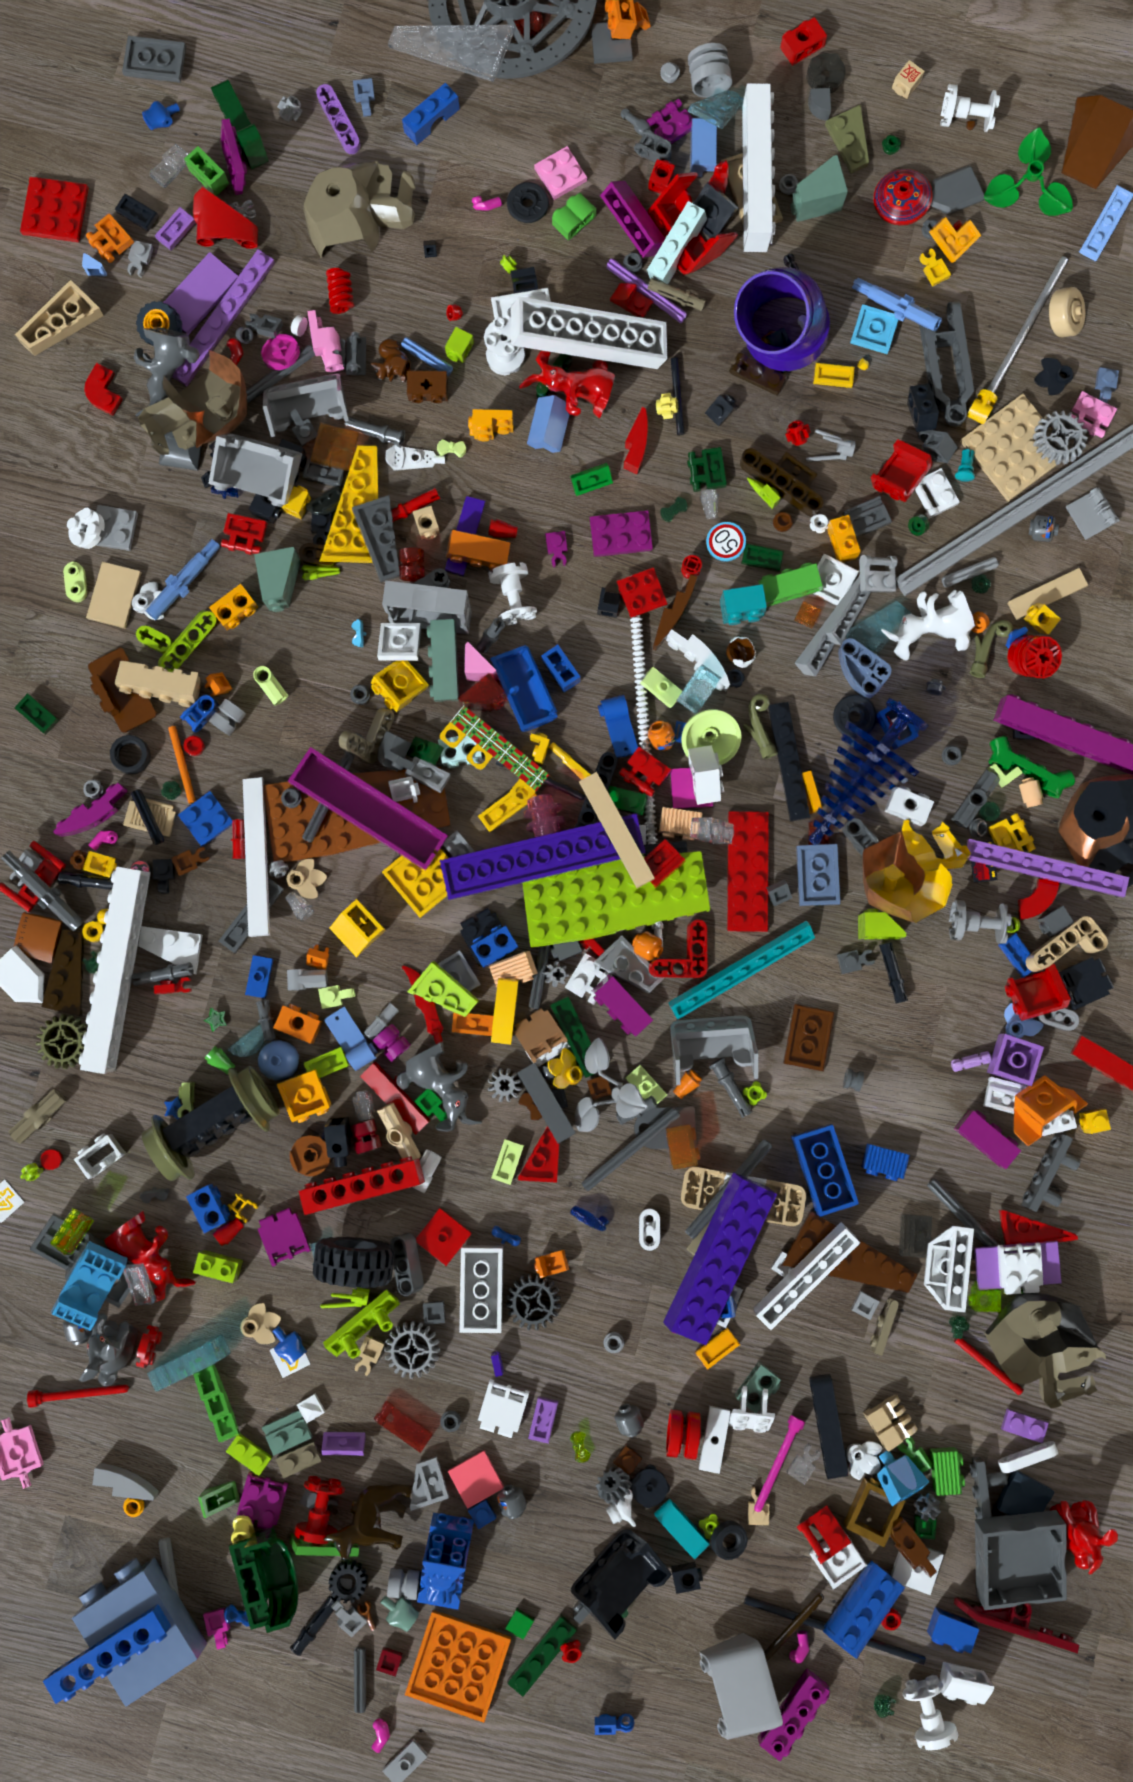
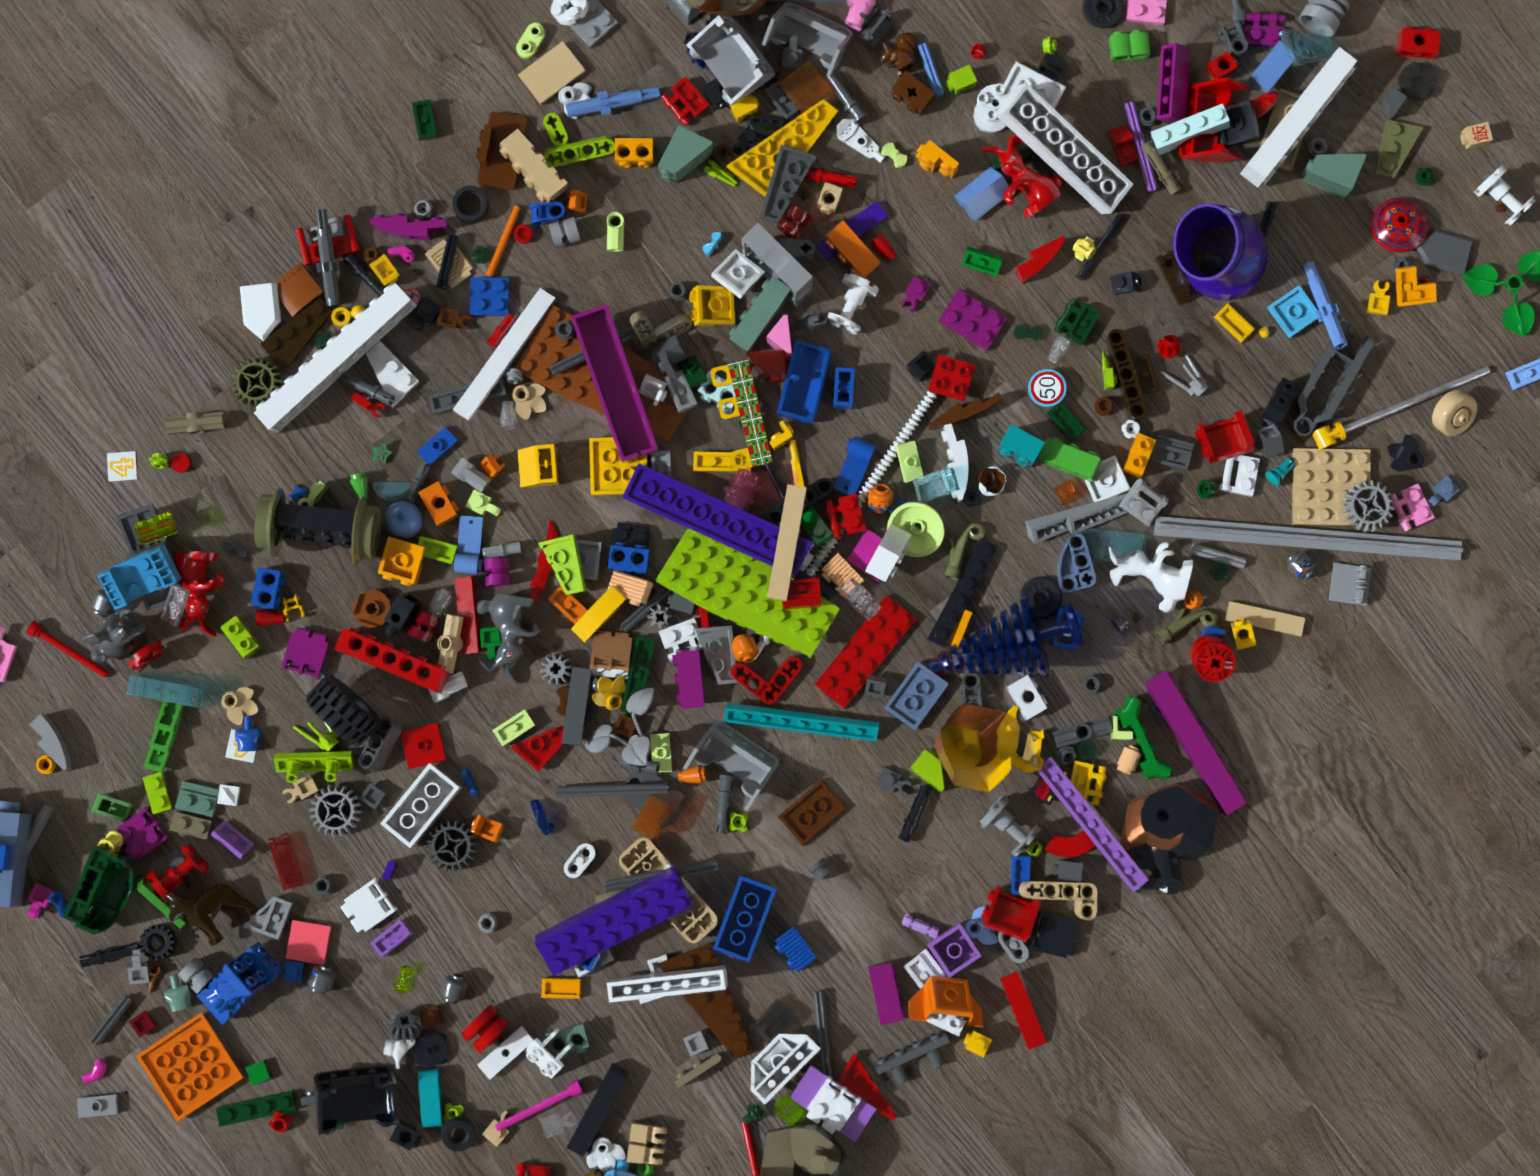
camera: 40 degrees right, 0 degrees up
(86, 1152) = (227, 478): white window -> none
(688, 567) = (1002, 387): red wheel -> none

